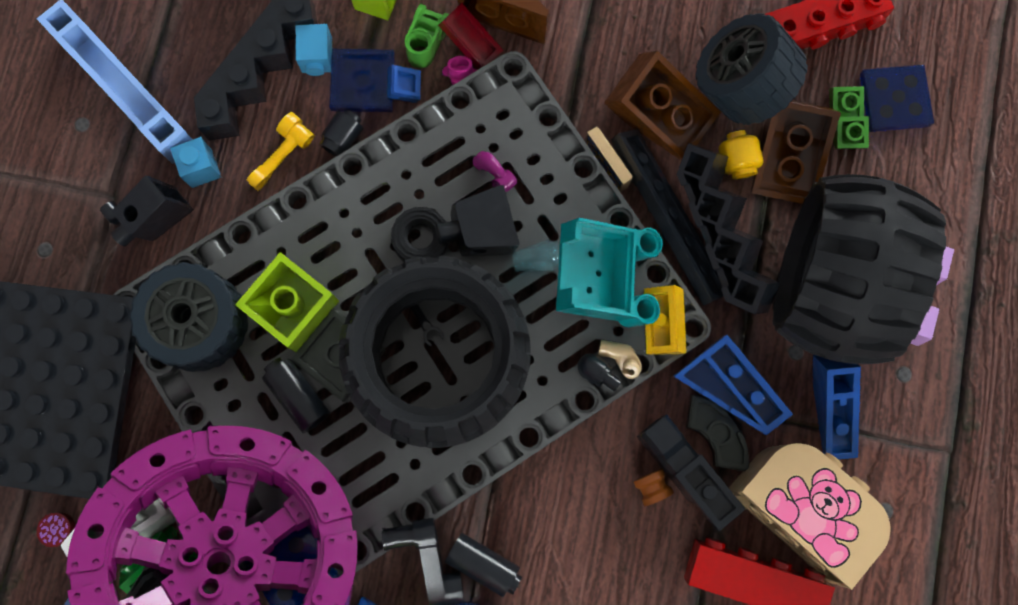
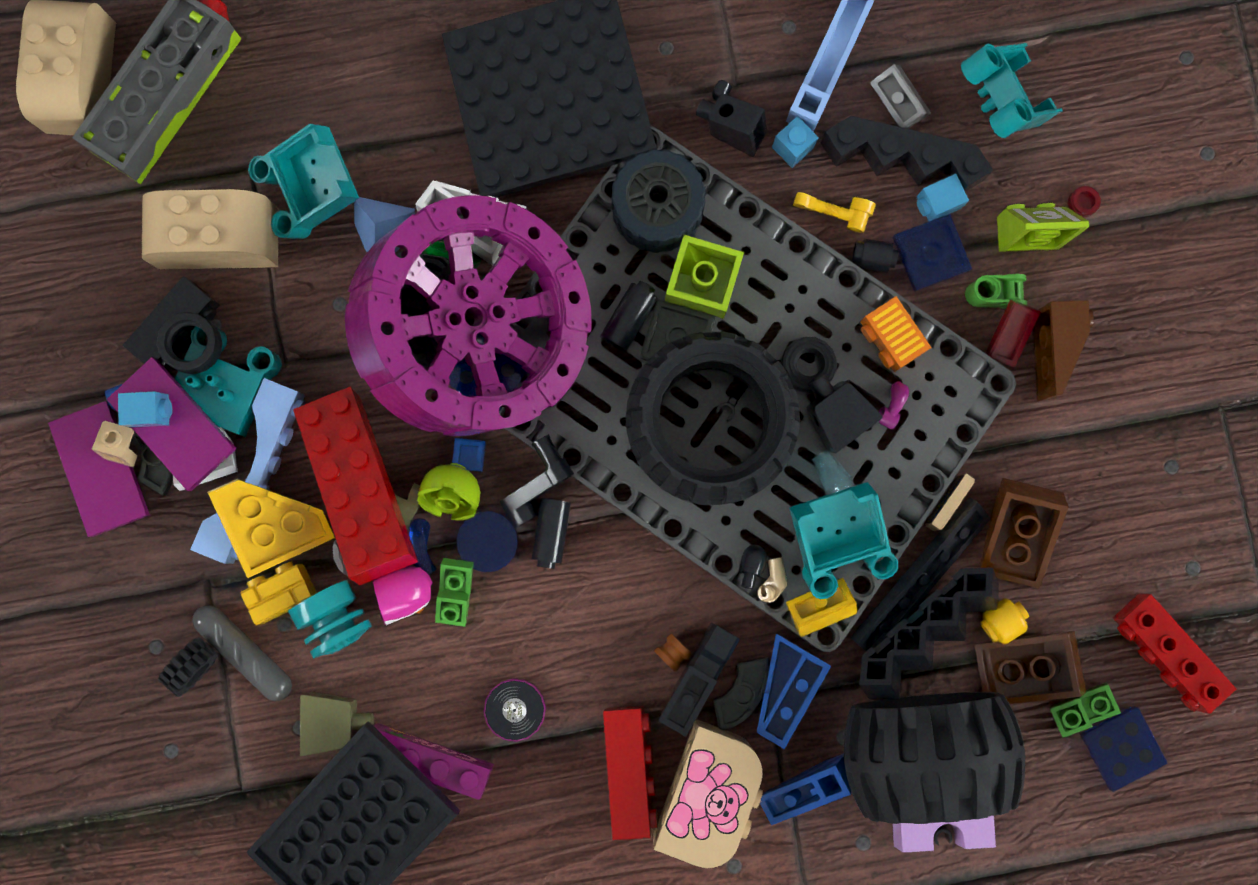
camera: 70 degrees right, 5 degrees up
(54, 529) = (441, 167): dark red tile -> none
(198, 48) = (900, 97): none -> light grey slope
(404, 84) = (944, 291): blue tile -> none
(426, 142) = (894, 334): none -> orange brick
(458, 68) = (978, 334): dark pink plate -> none
(751, 69) = (1087, 599): black wheel -> none

